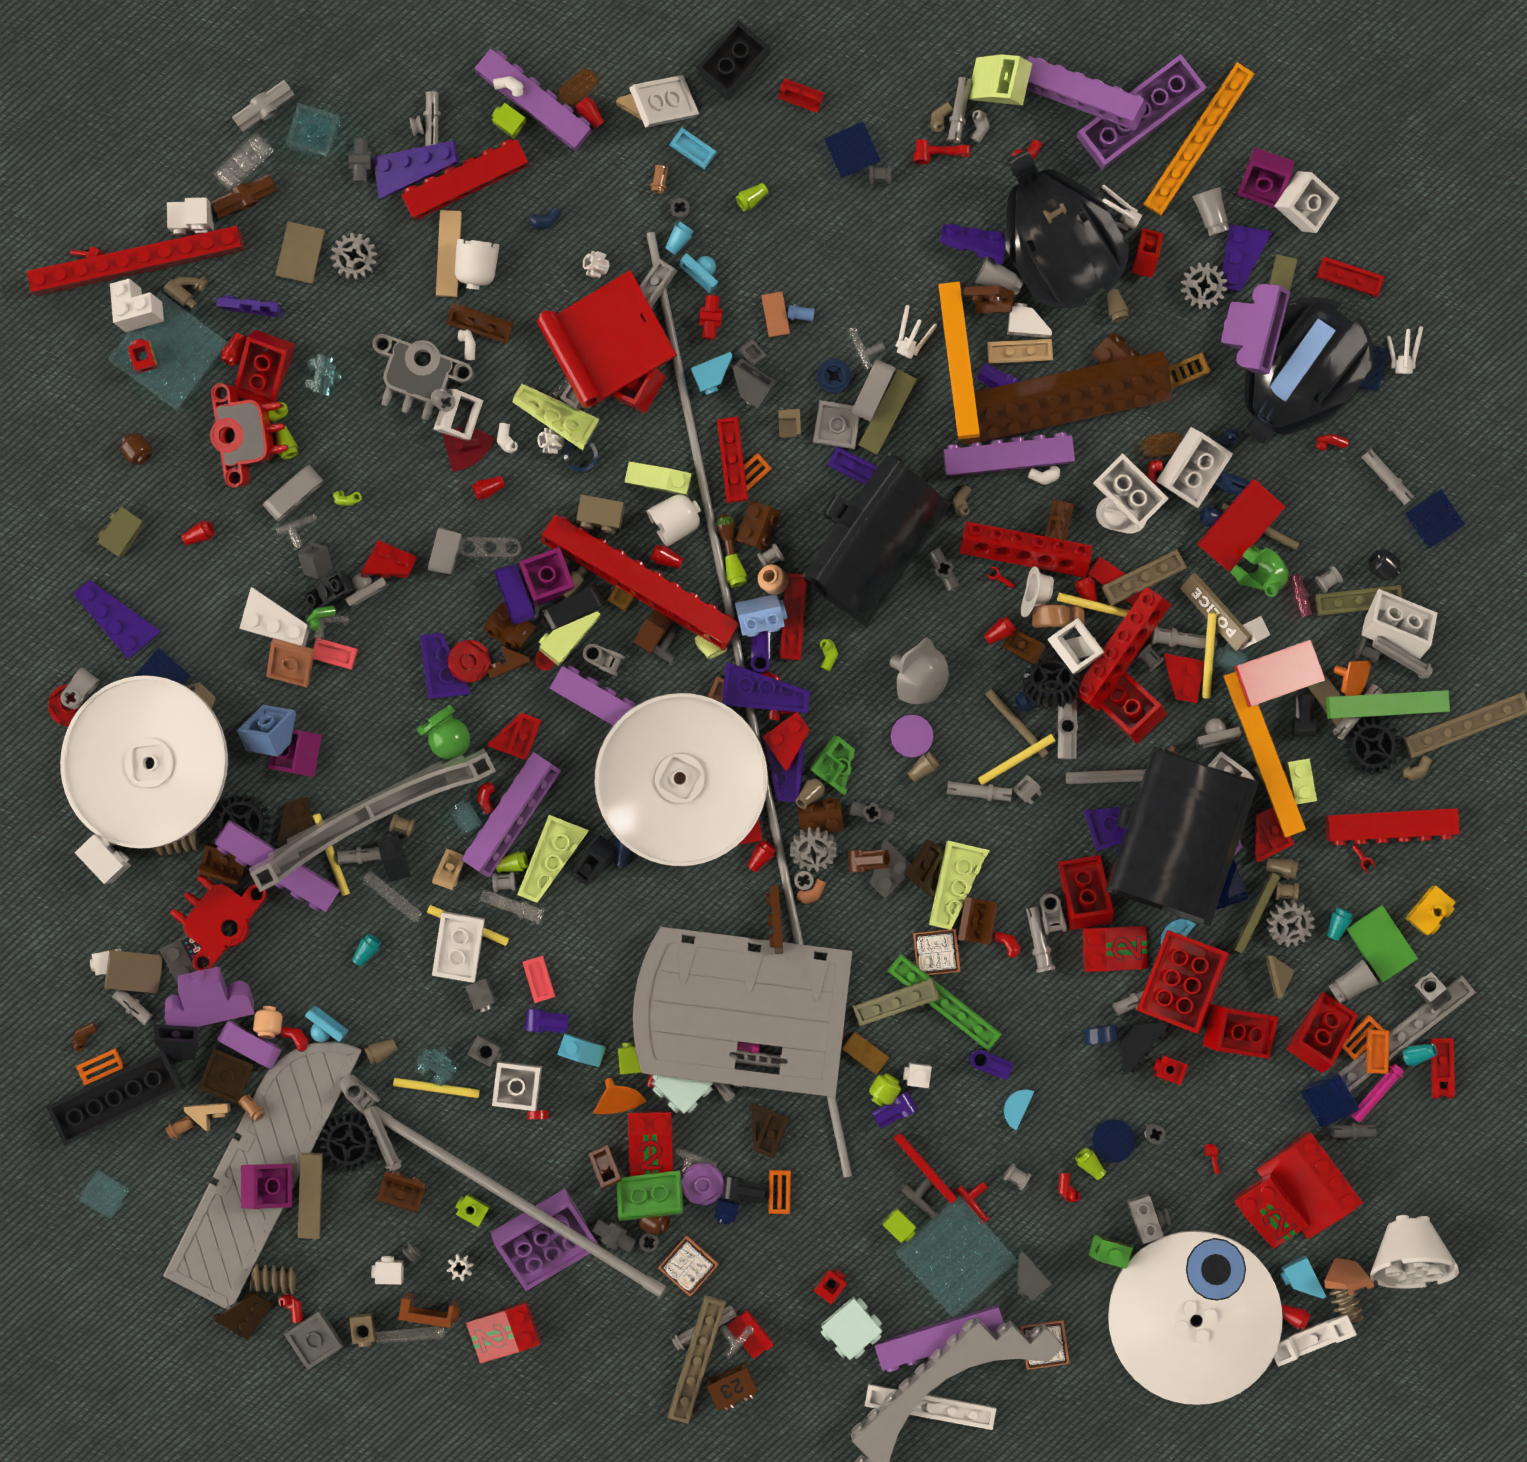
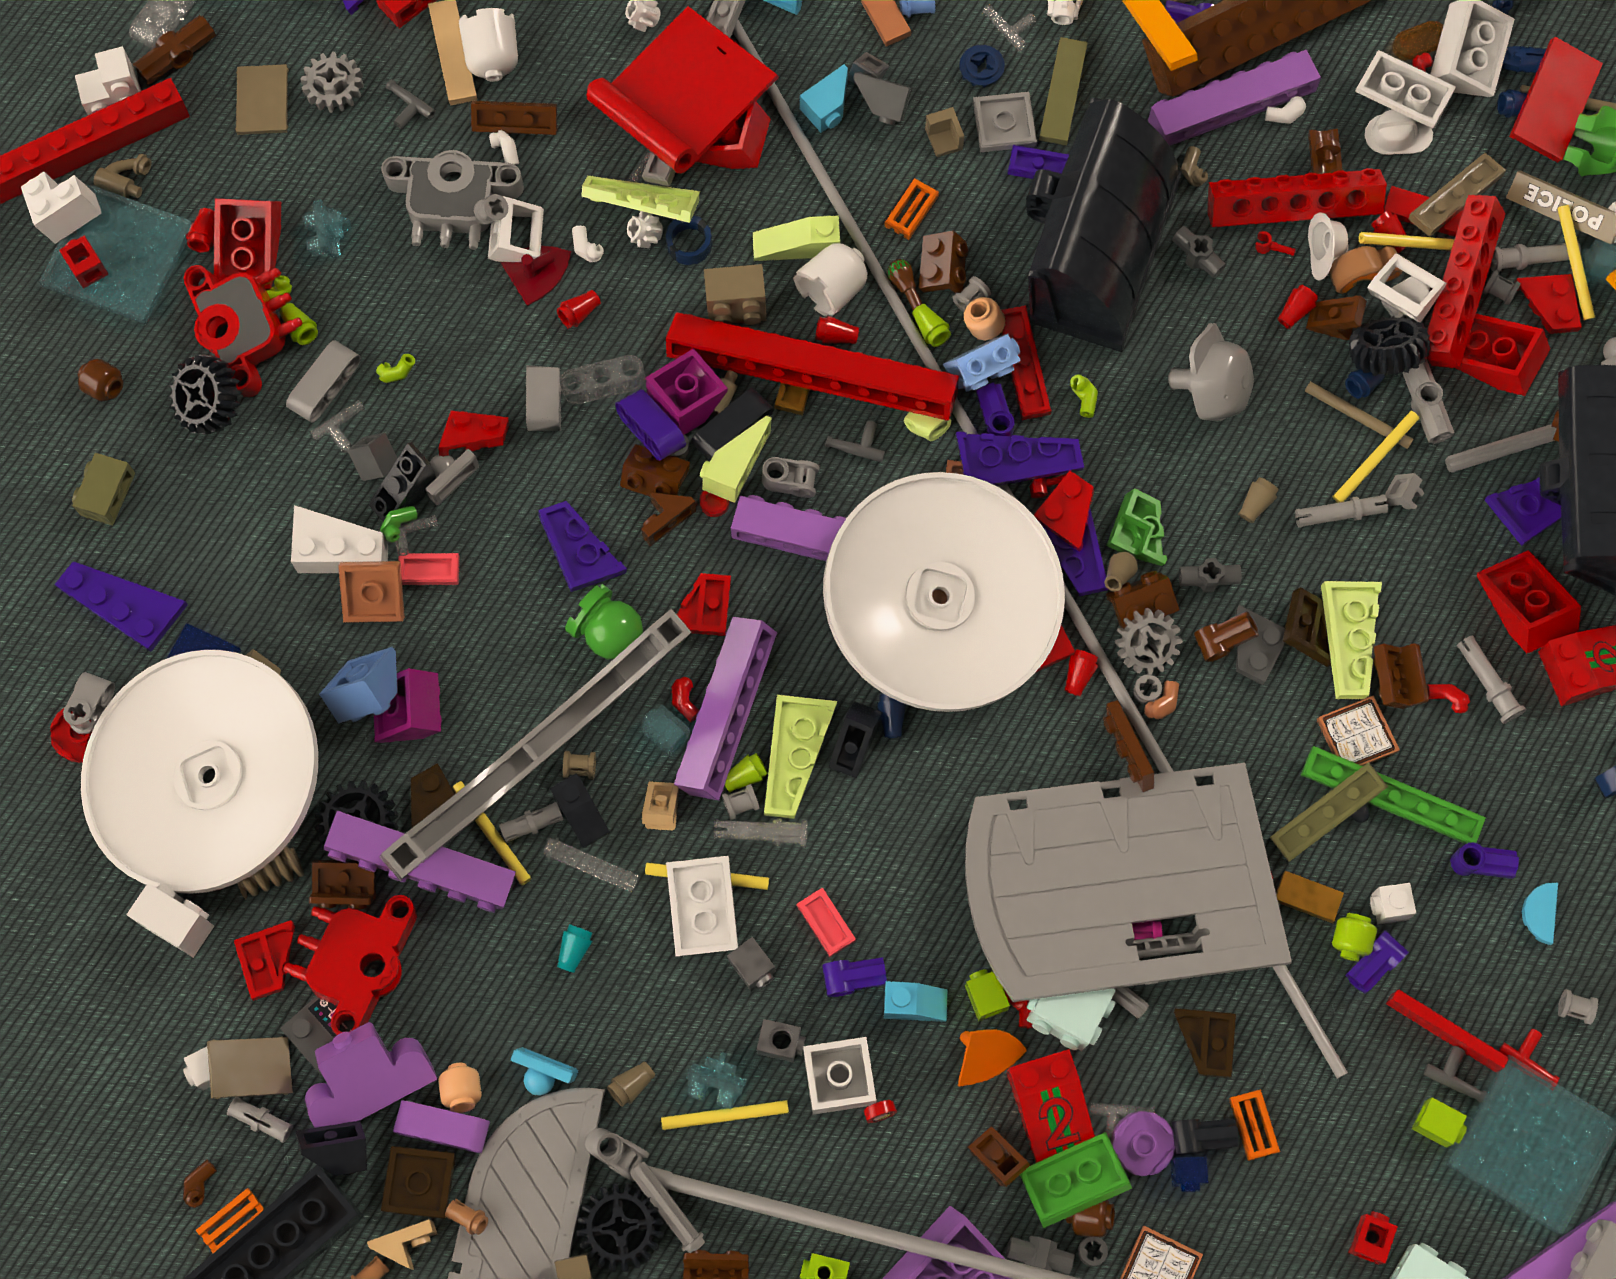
camera: 15 degrees left, 15 degrees down
(159, 900) = (264, 957): none -> red wing
(199, 533) = (209, 463): red cone -> none
(207, 484) = (211, 393): none -> black gear
(250, 306) = (215, 170): dark purple wing -> none
(297, 1036) = (507, 1096): red arm -> none
(410, 290) = (414, 105): none -> dark grey piece
(469, 661) = (612, 528): red tile -> none
(652, 631) = (846, 424): reddish brown slope -> none
(710, 317) = (806, 38): red axle -> none
(732, 460) = (886, 193): red tile -> none
(873, 390) = (1038, 66): light grey beam -> none
(911, 736) = (1228, 467): medium lavender tile -> none
(1052, 915) = (1496, 641): light grey piece -> none

